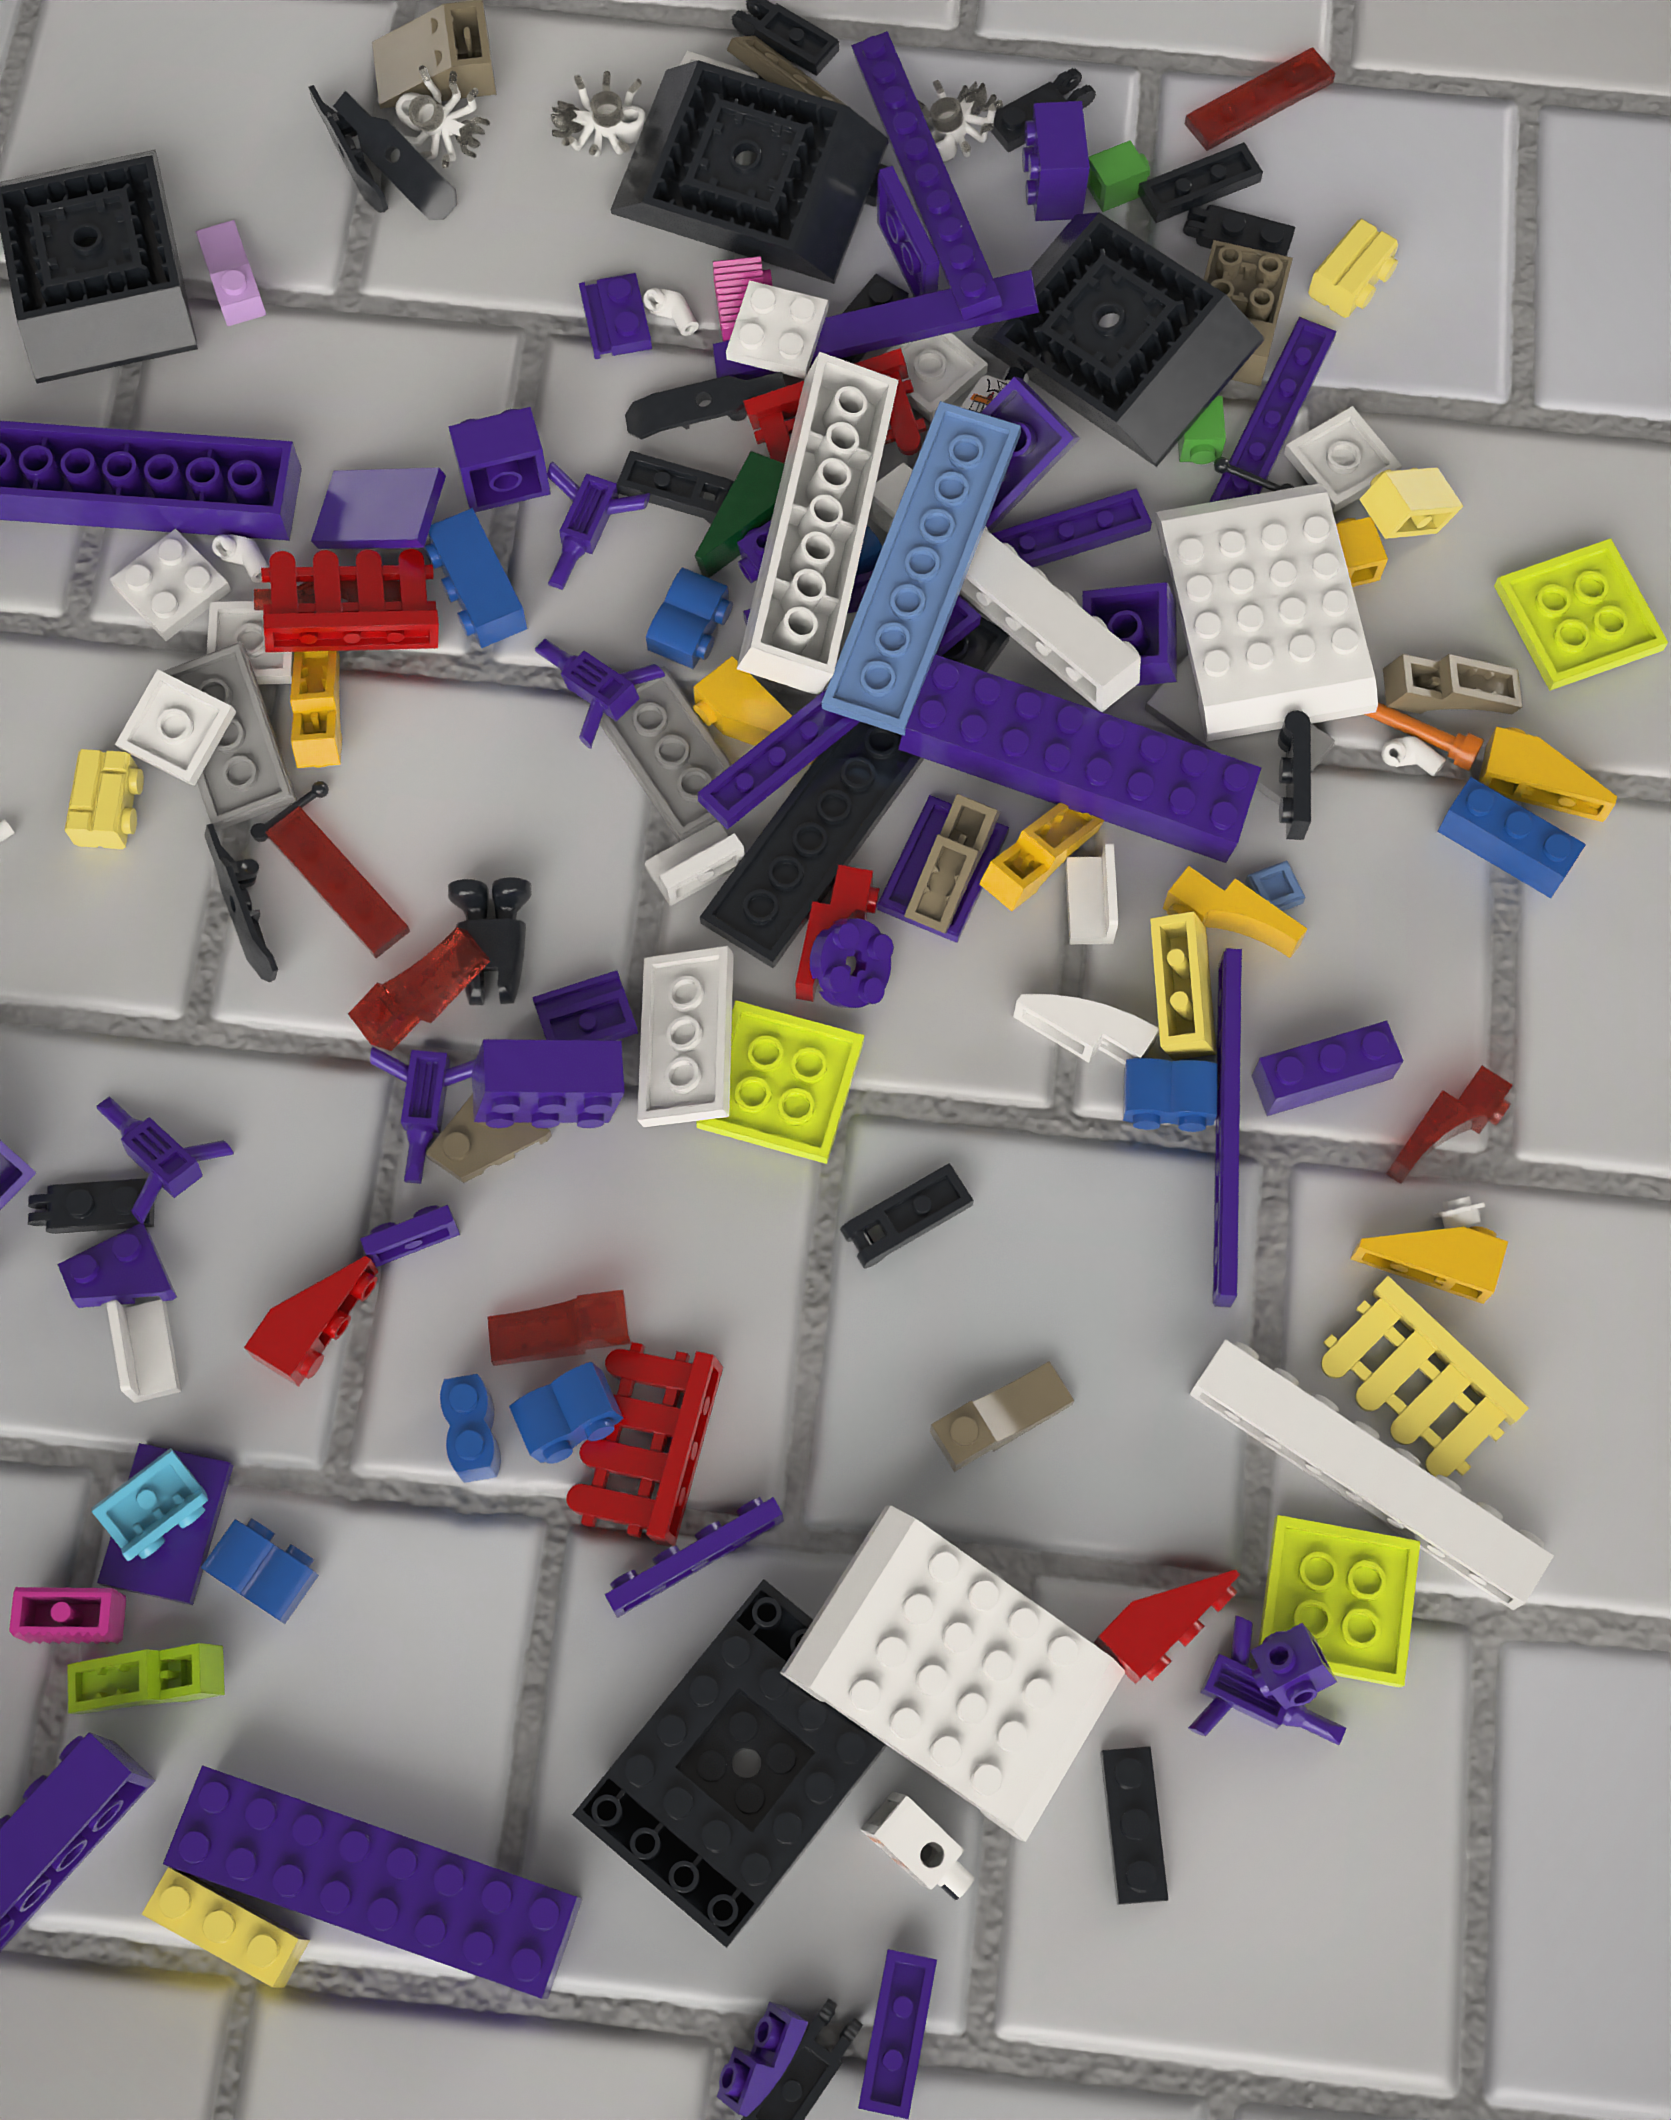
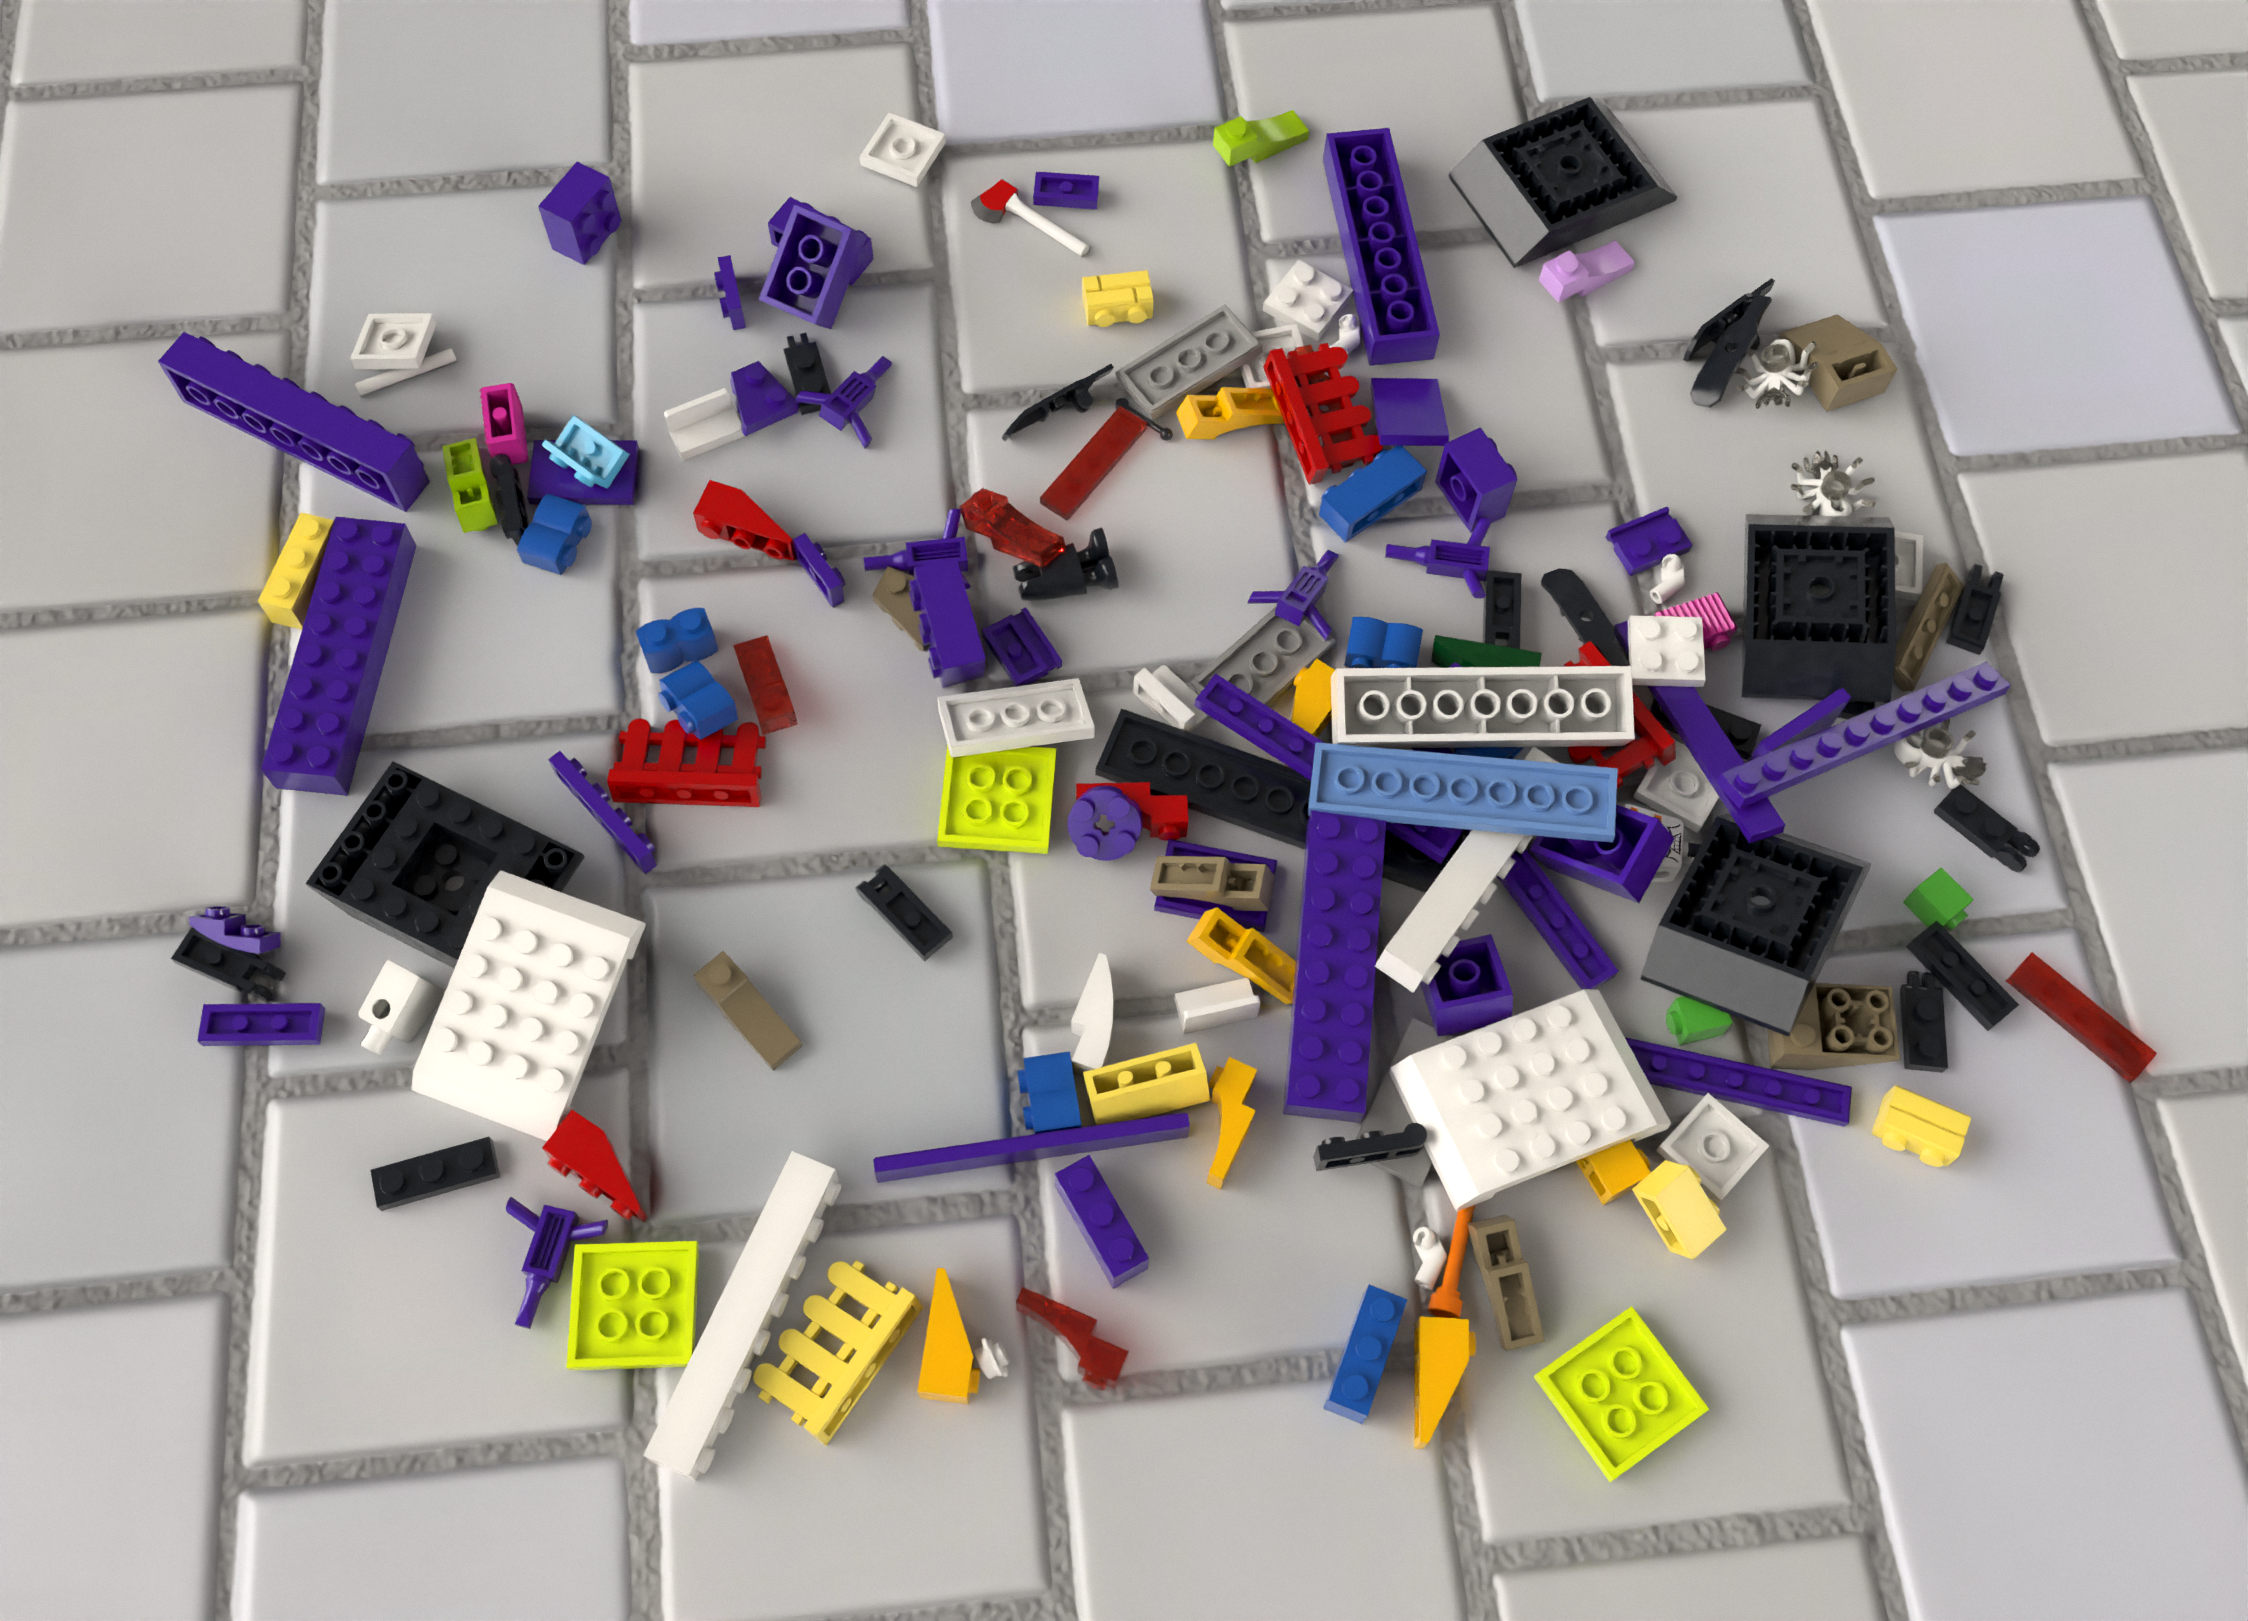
camera: 75 degrees right, 5 degrees down
(175, 727) = (1179, 322): white plate -> none
(186, 1624) = (510, 497): none -> black hinge
(1056, 160) = (1925, 841): dark purple brick -> none
(1222, 466) = (1667, 1041): black hinge -> none
(1277, 886) = (1266, 1157): medium blue tile -> none
(1291, 1667) = (560, 1262): dark purple brick -> none

